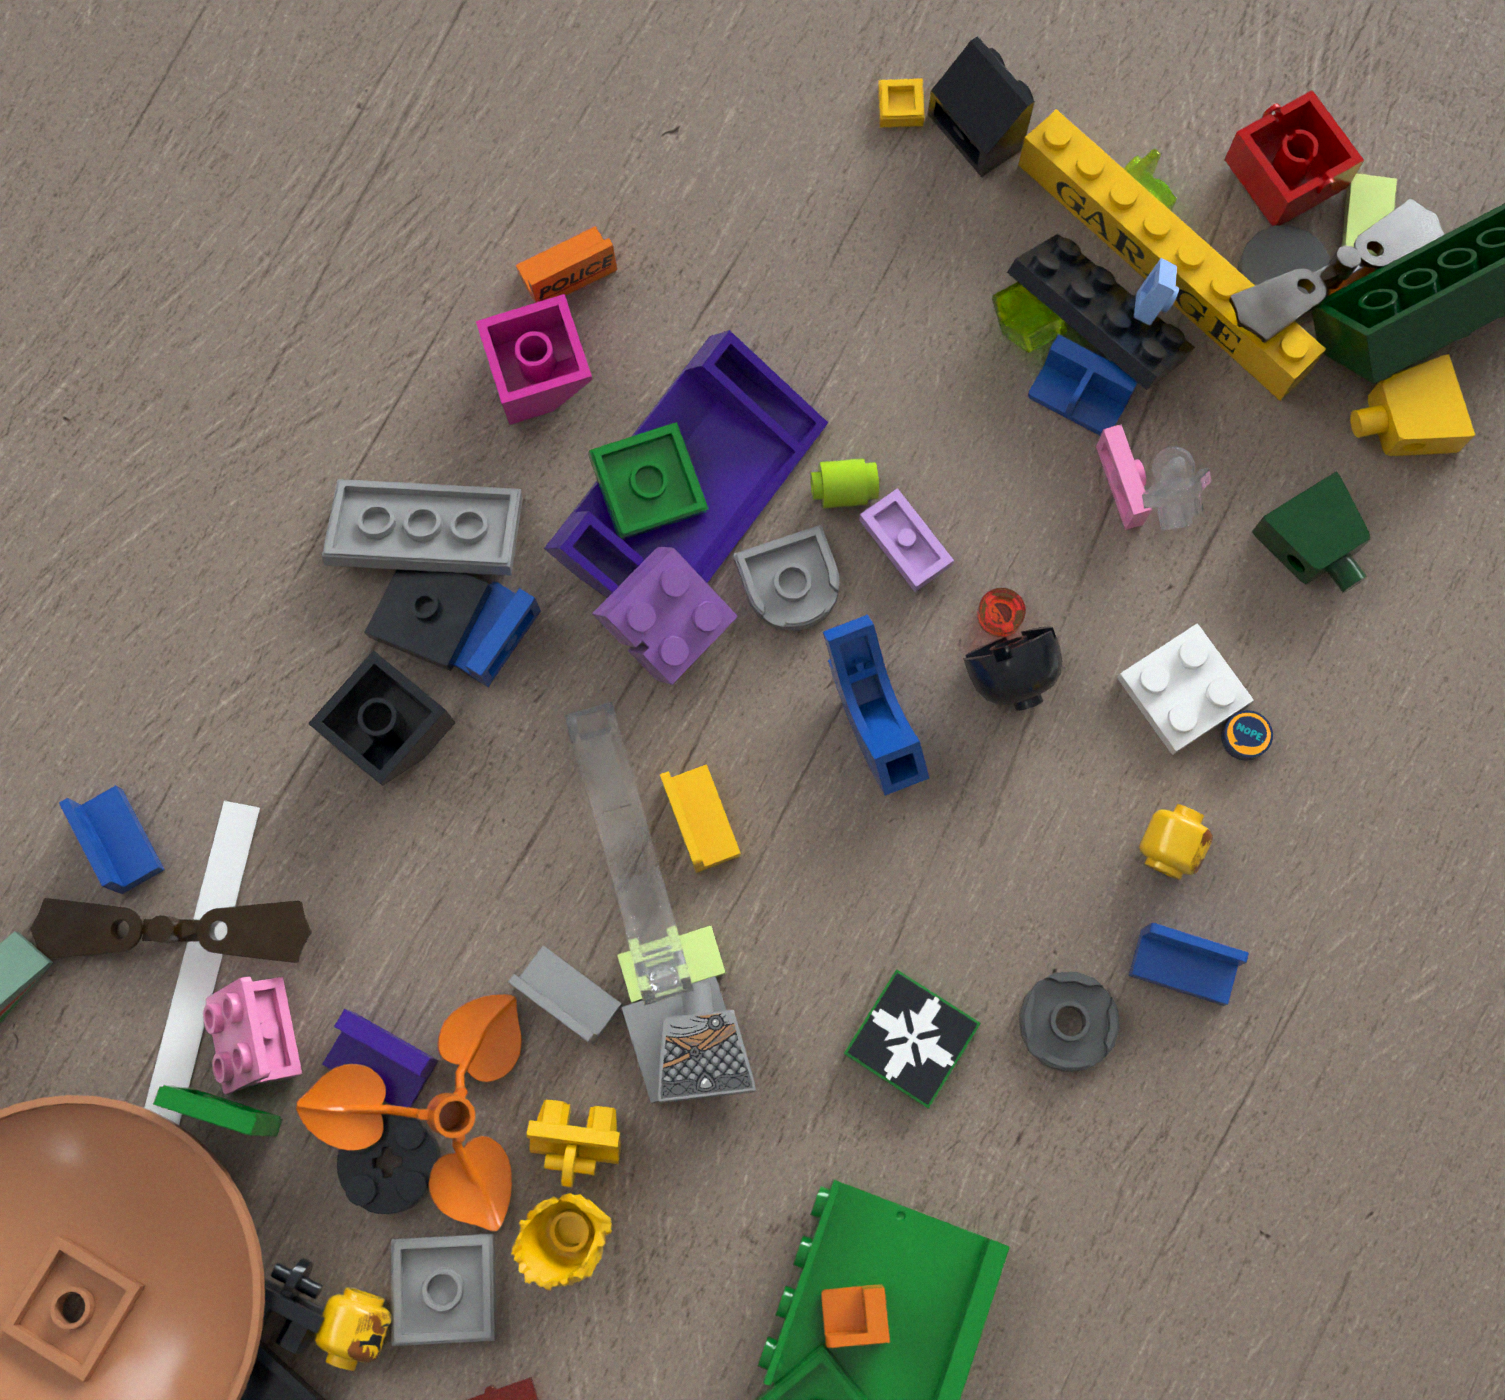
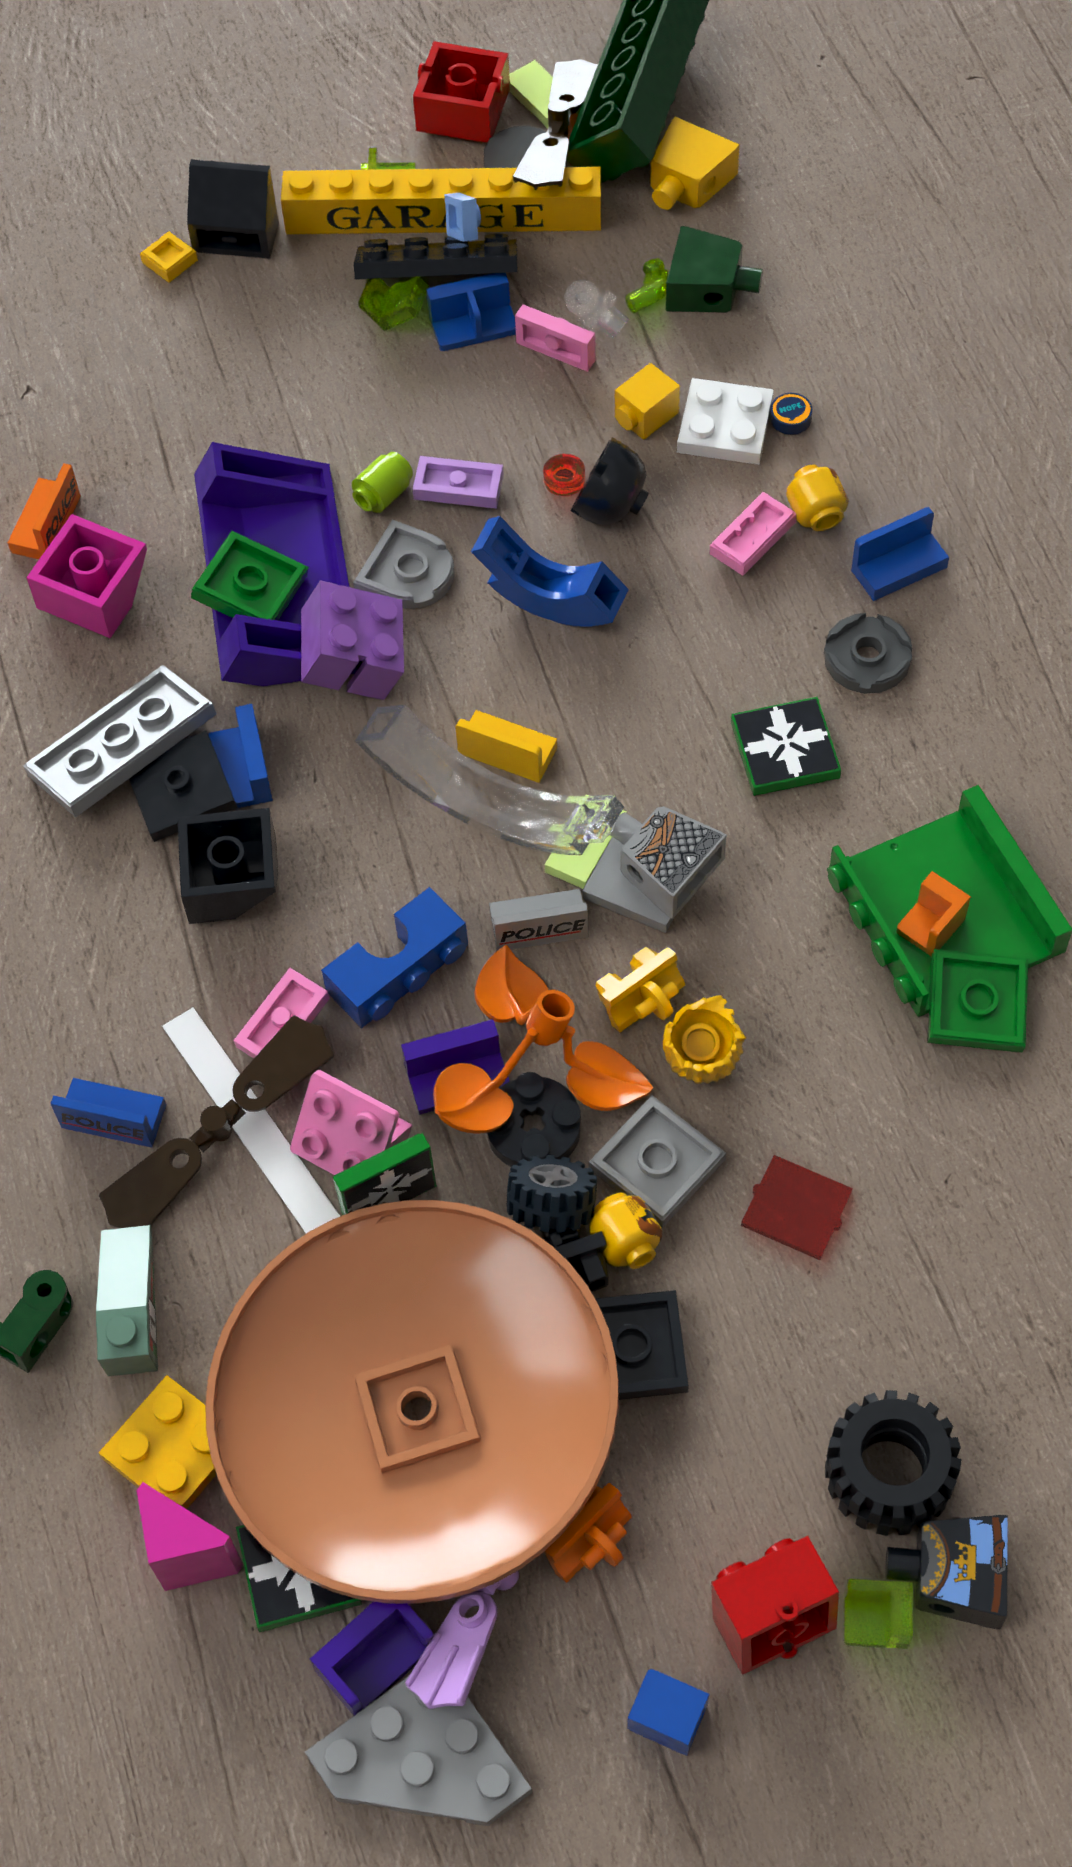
camera: 45 degrees left, 15 degrees down
(316, 883) = (290, 997): none -> bright pink plate
(327, 1226) = (551, 1193): none -> black wheel
(383, 925) = (371, 985): none -> blue arch
(1091, 820) = (752, 533): none -> bright pink plate
(1133, 611) = (646, 401): none -> yellow brick
(1261, 501) = (653, 286): none -> clear neon green arm

